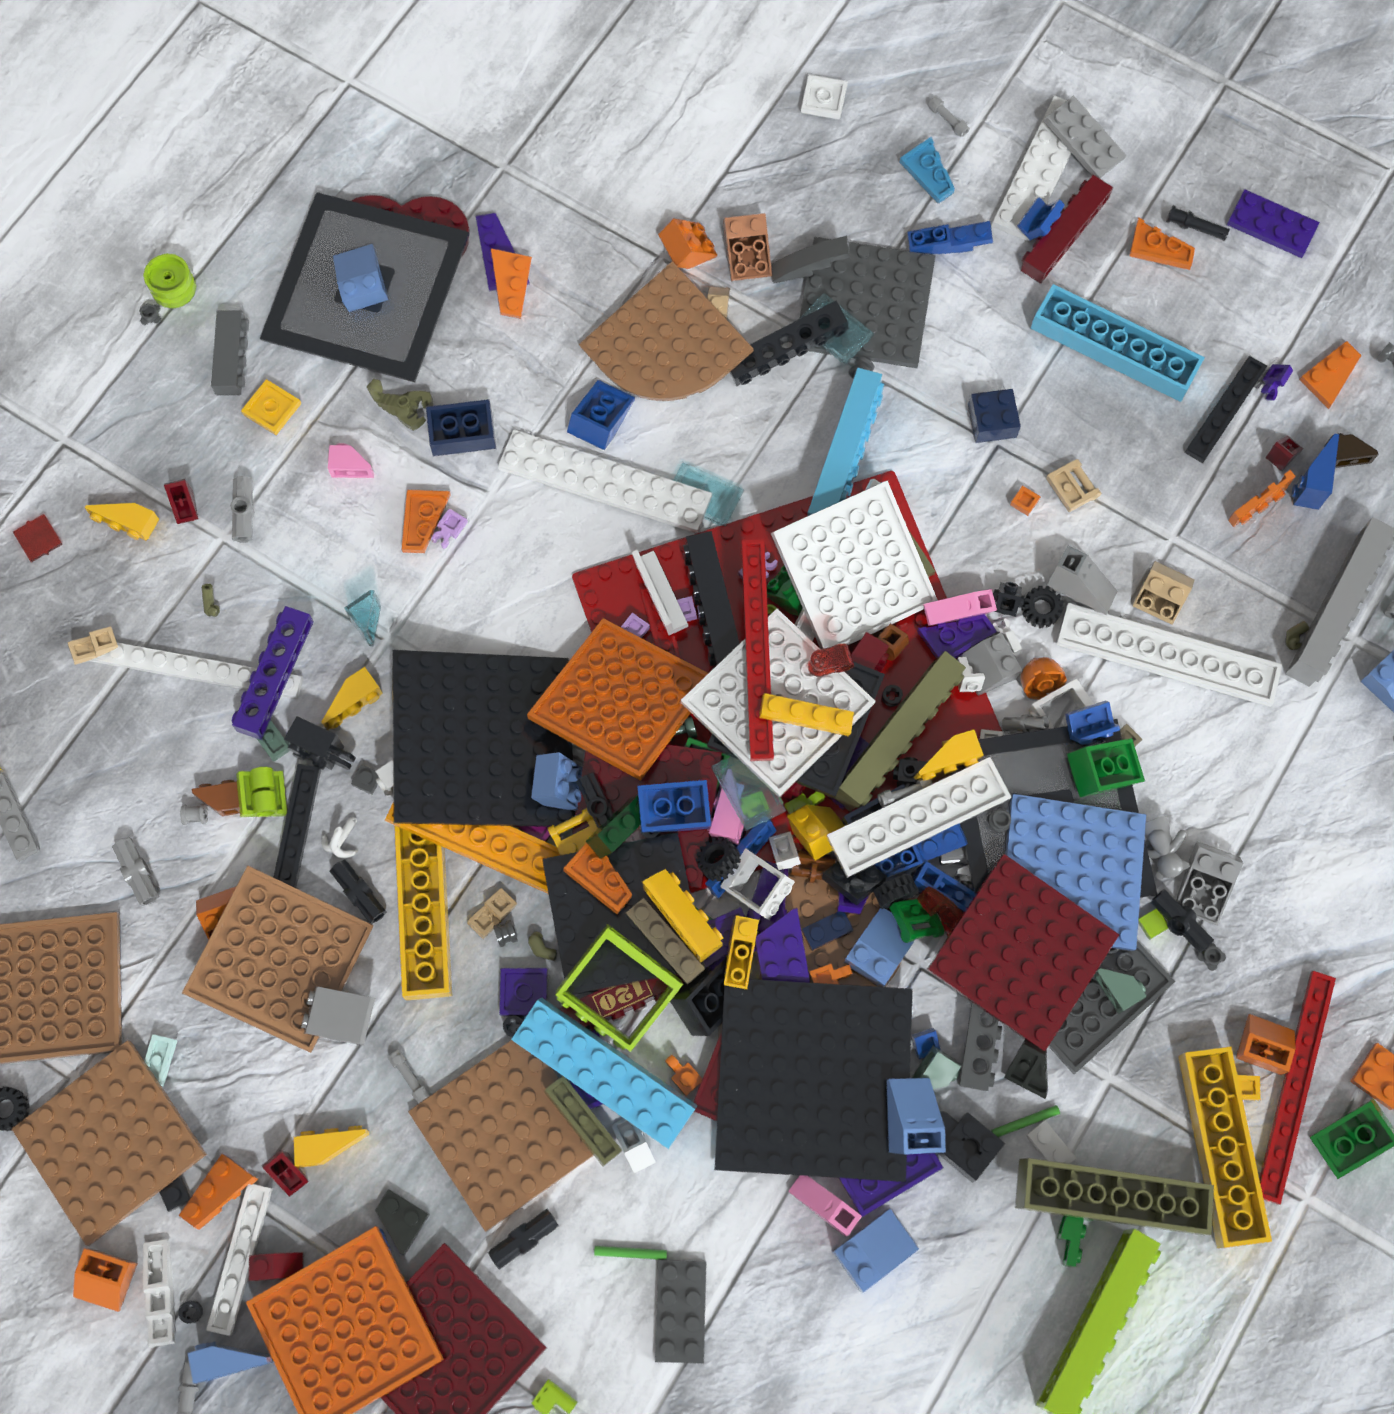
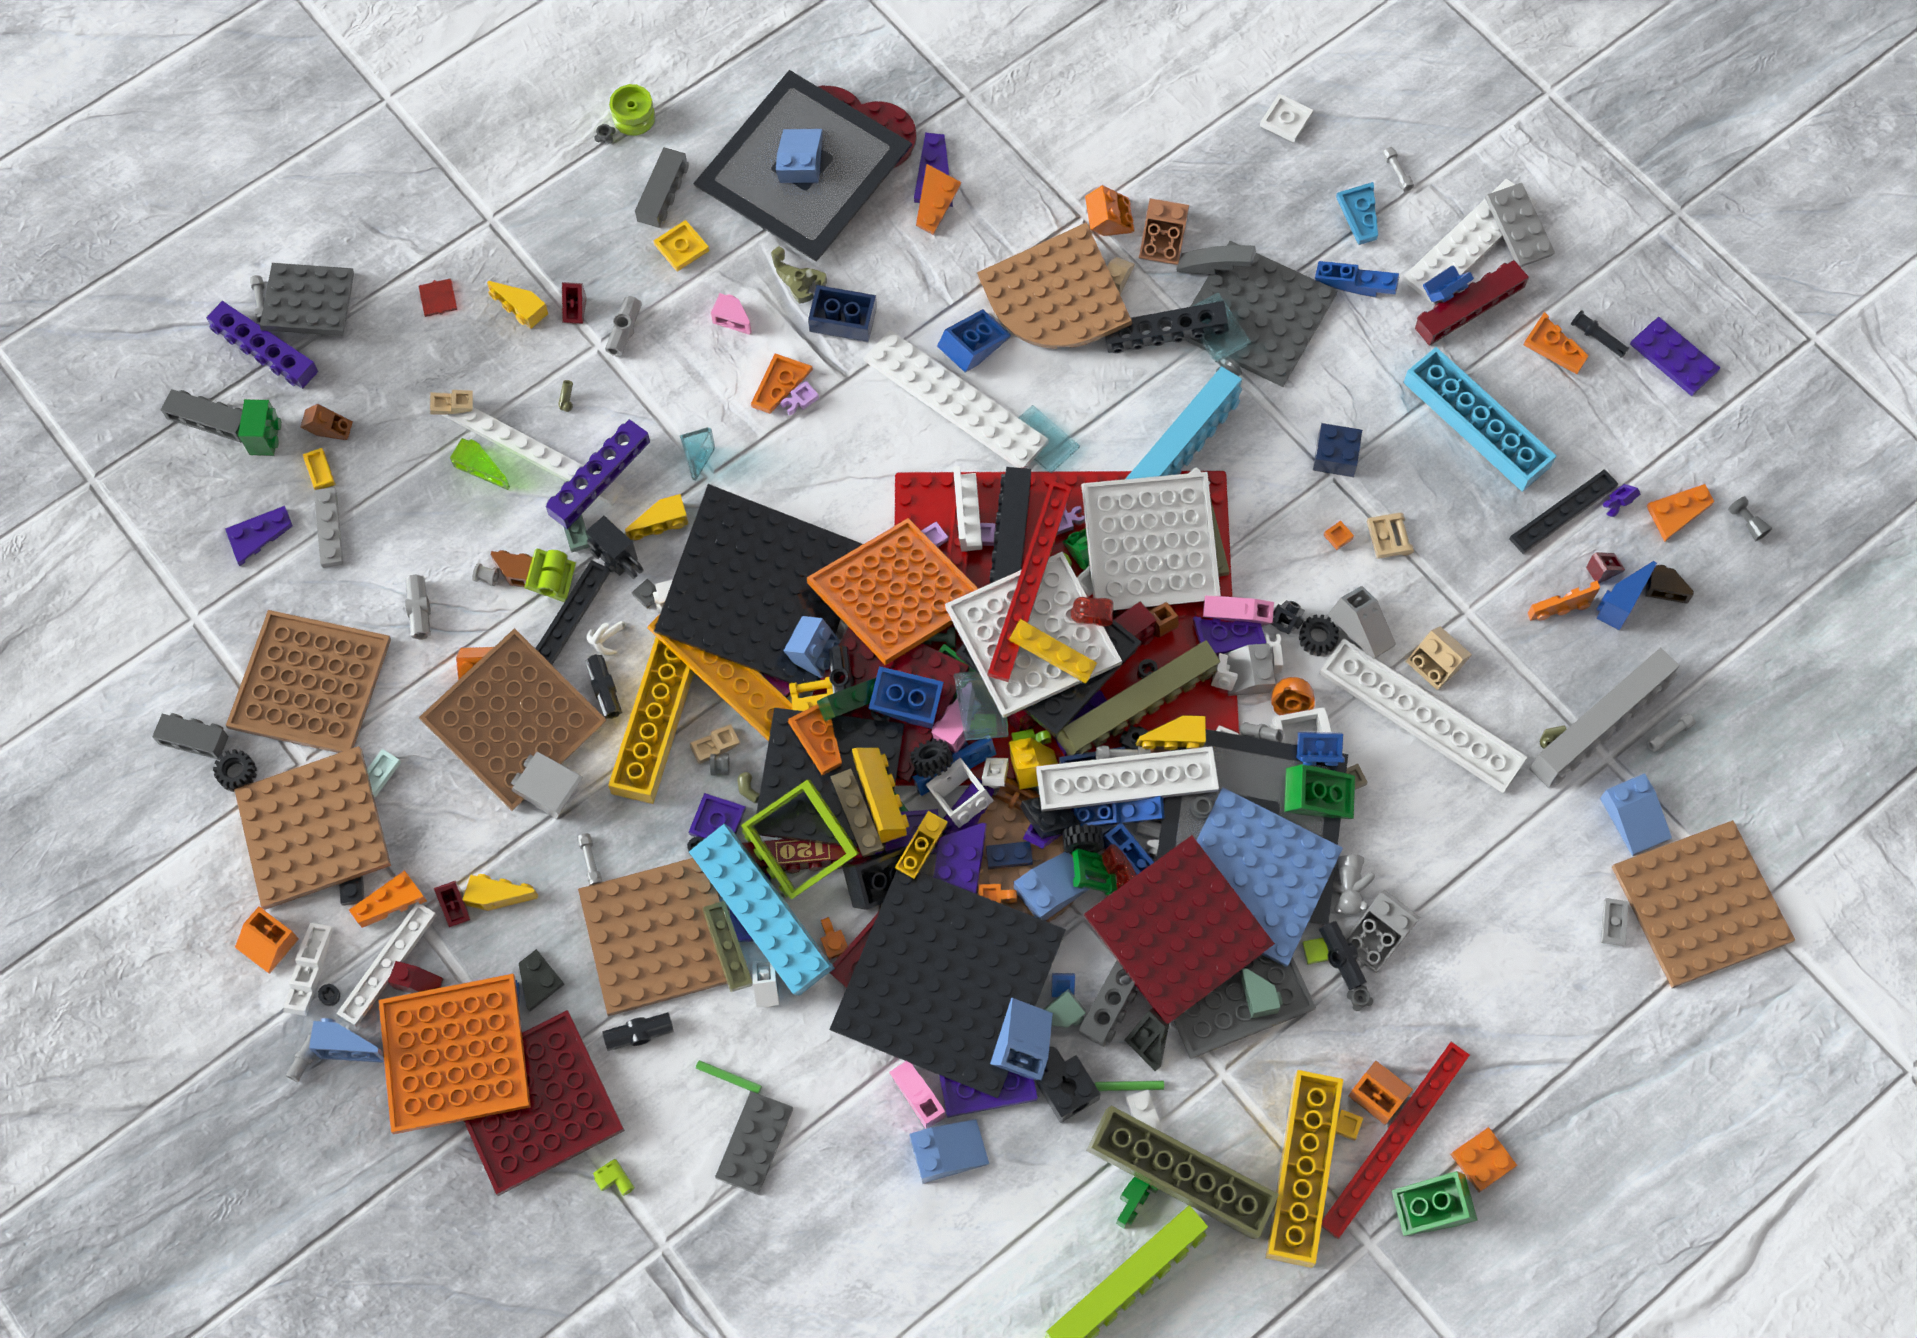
camera: 20 degrees right, 5 degrees down
(138, 698) = (474, 460): none -> clear neon green slope

